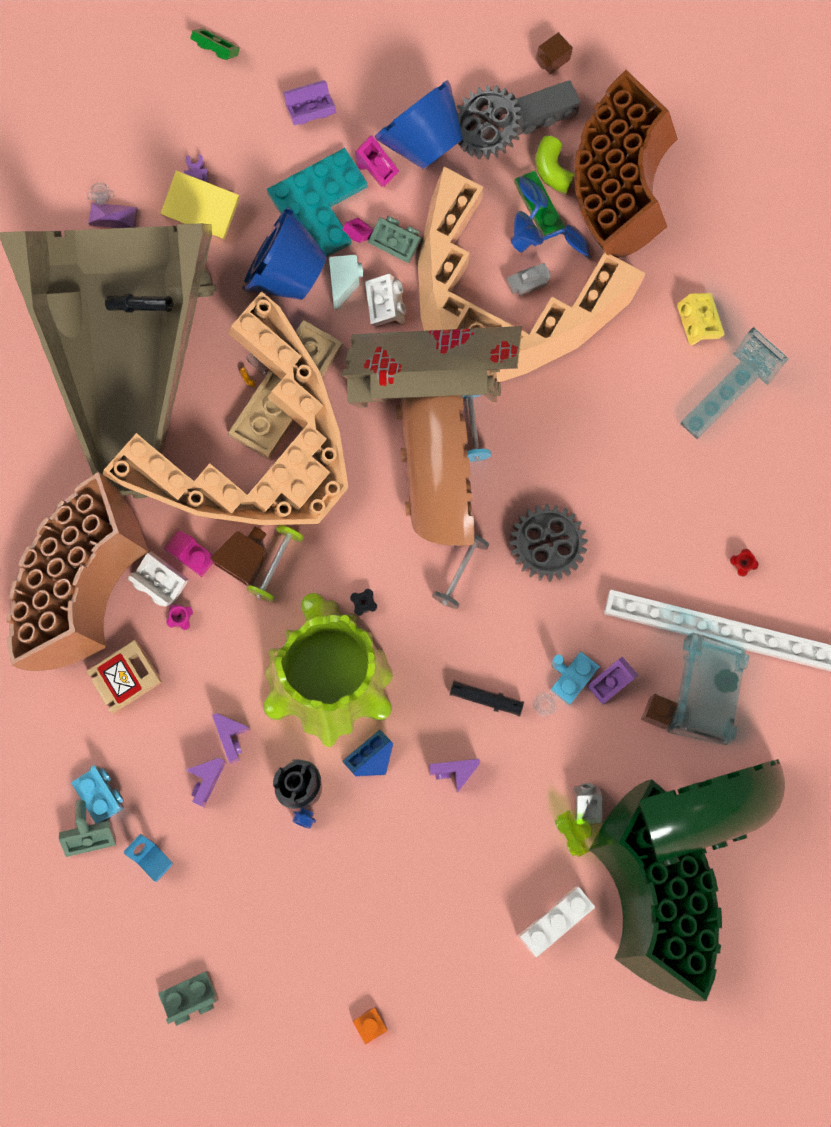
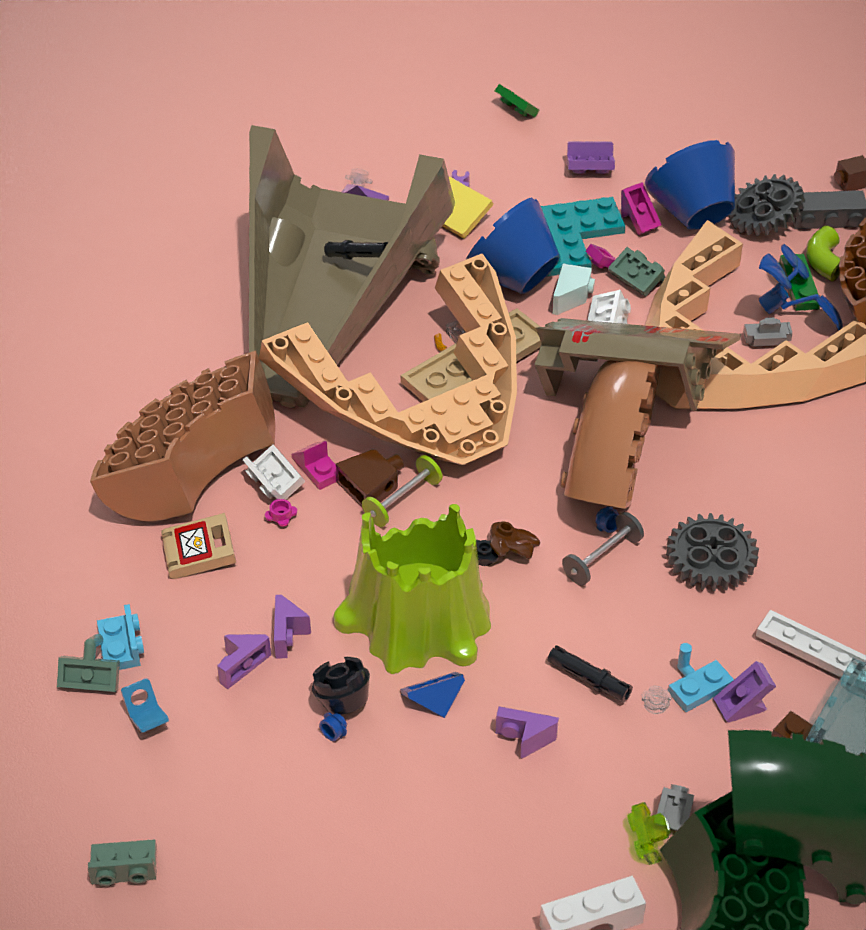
camera: 25 degrees right, 30 degrees down
(386, 586) = (507, 538): none -> reddish brown plate
(475, 454) = (658, 454): axle -> none

